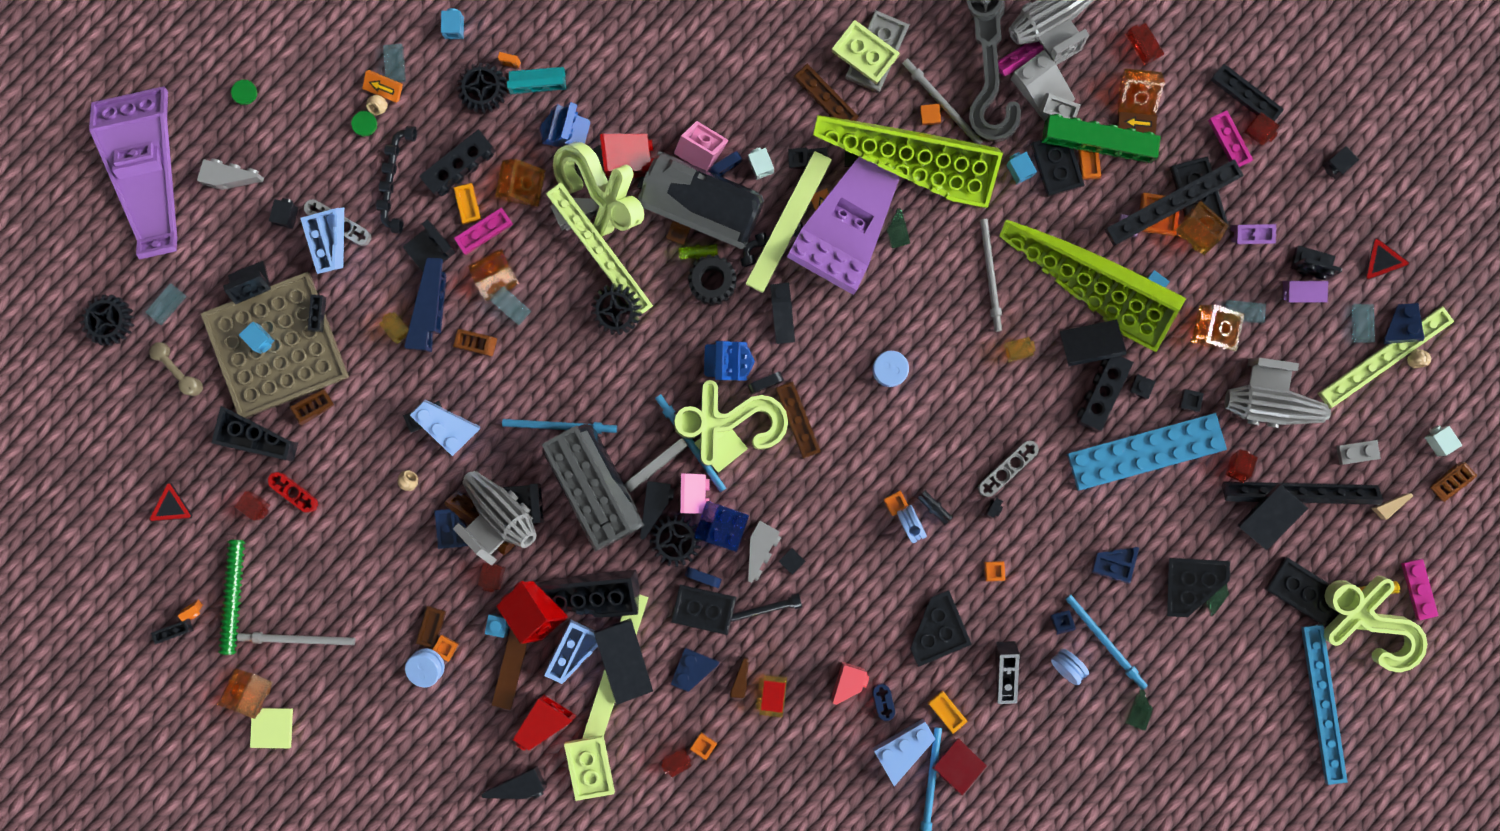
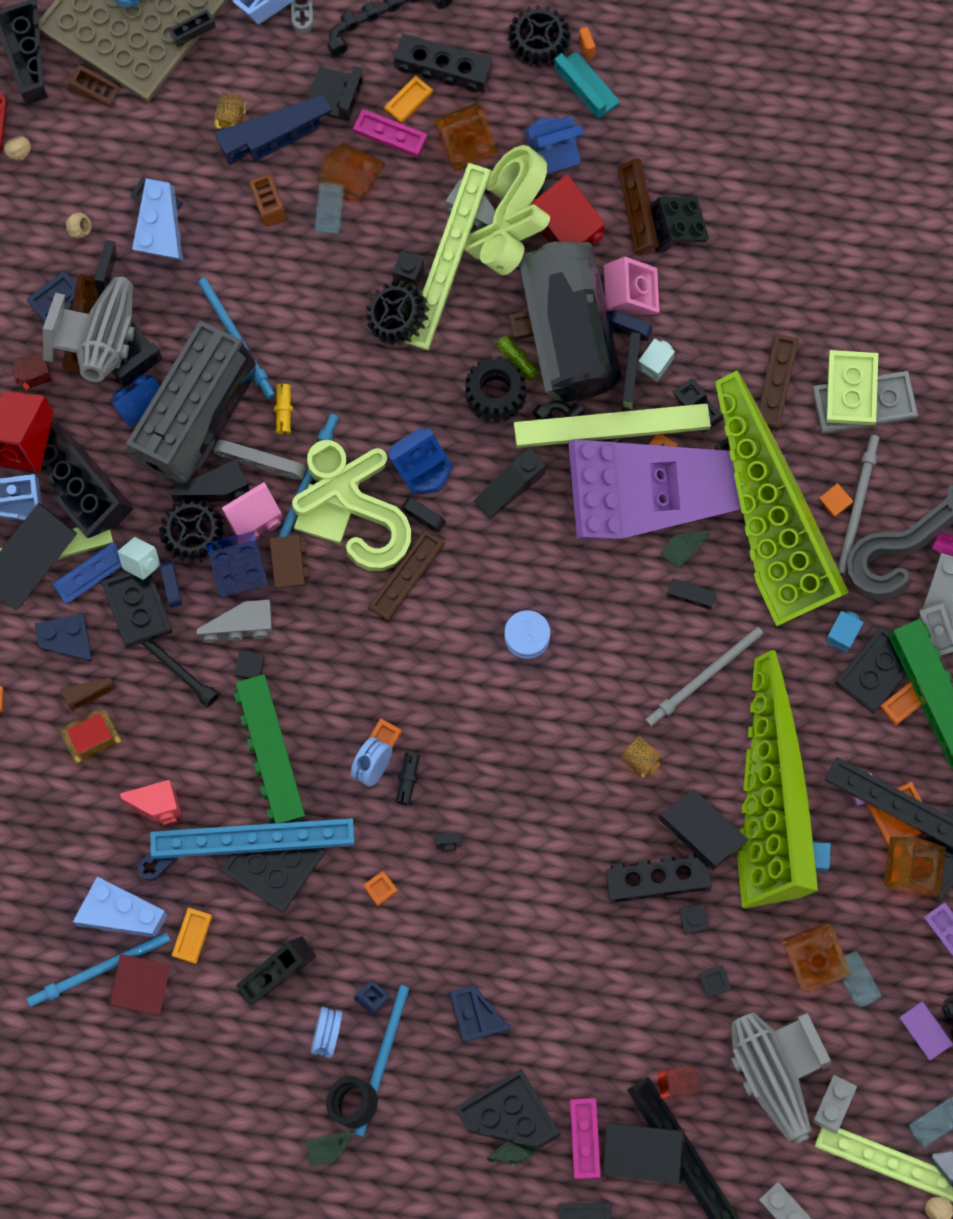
camera: 55 degrees right, 10 degrees down
(322, 486) = (17, 148): none -> tan piece
(445, 475) = (105, 266): none -> black tile
(558, 518) = (134, 400): none -> blue bracket
(590, 282) = (408, 269): none -> black brick
(631, 426) = (283, 409): none -> yellow pin
(647, 104) = (638, 207): none -> reddish brown tile
(659, 626) = (88, 573): none -> blue tile
(673, 588) = (139, 558): none -> light aqua brick
(674, 88) = (677, 221): none -> black bracket
(740, 491) = (288, 561): none -> reddish brown brick
(763, 186) = (631, 372): none -> black tile
(860, 584) = (270, 750): none -> green brick
(913, 634) = (252, 838): none -> dark azure plate
(932, 247) = (691, 594): none -> black piece
(1006, 466) = (504, 826): light grey beam -> none
(1120, 692) = (336, 1095): none -> black tyre
(1146, 451) = (625, 971): dark azure plate -> none
(1237, 546) = (585, 1138): none -> dark pink plate
(1314, 378) = (834, 1104): none -> light grey plate

